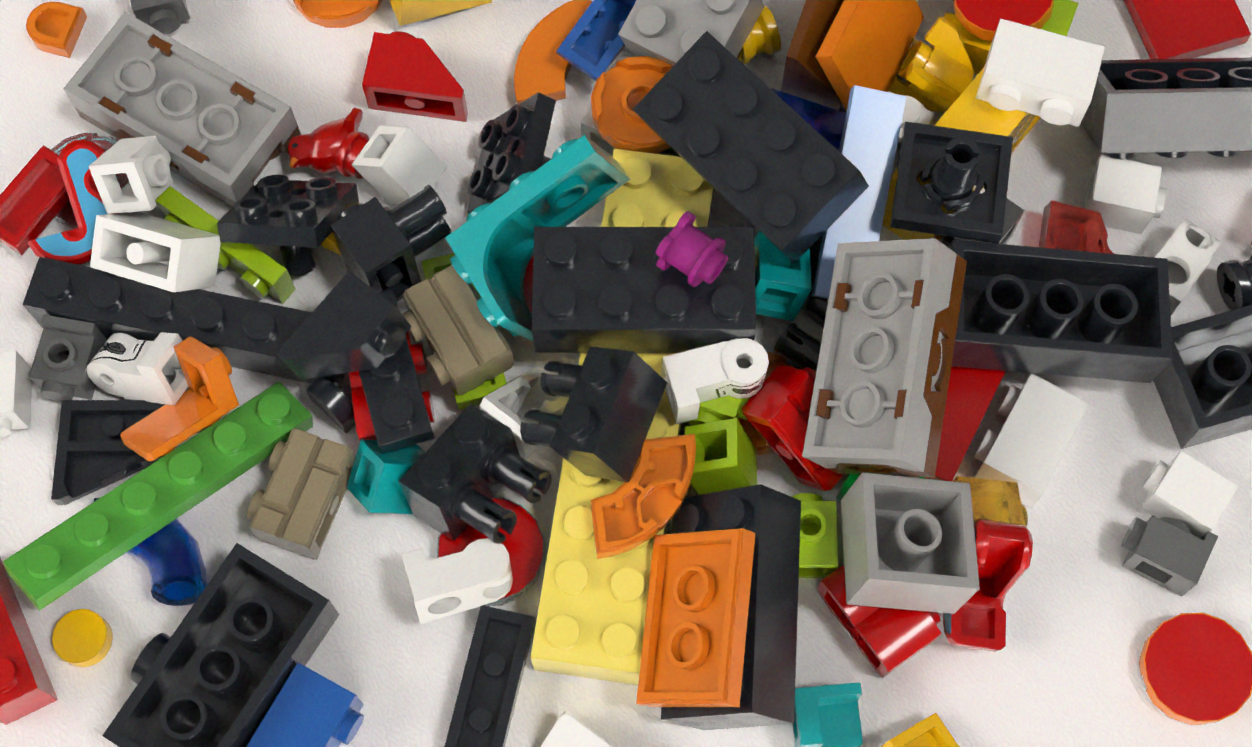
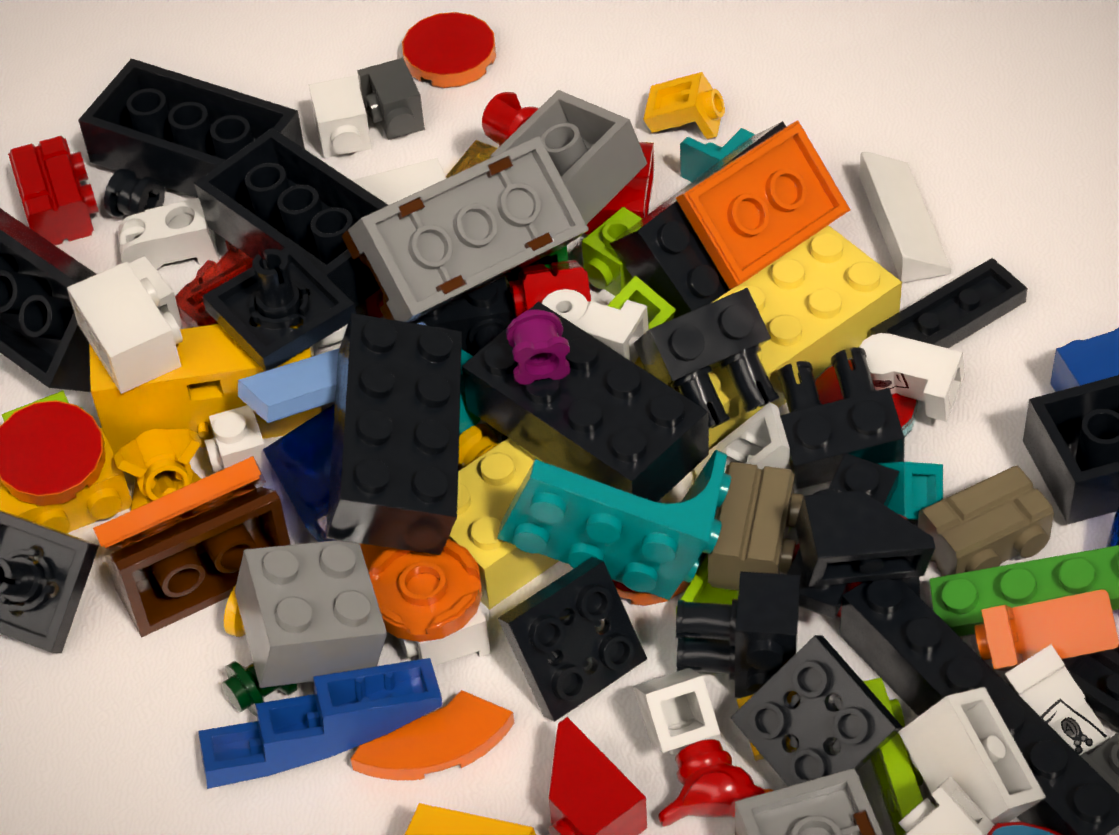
camera: 135 degrees left, 20 degrees down
(648, 500) = (769, 293): orange tile -> none

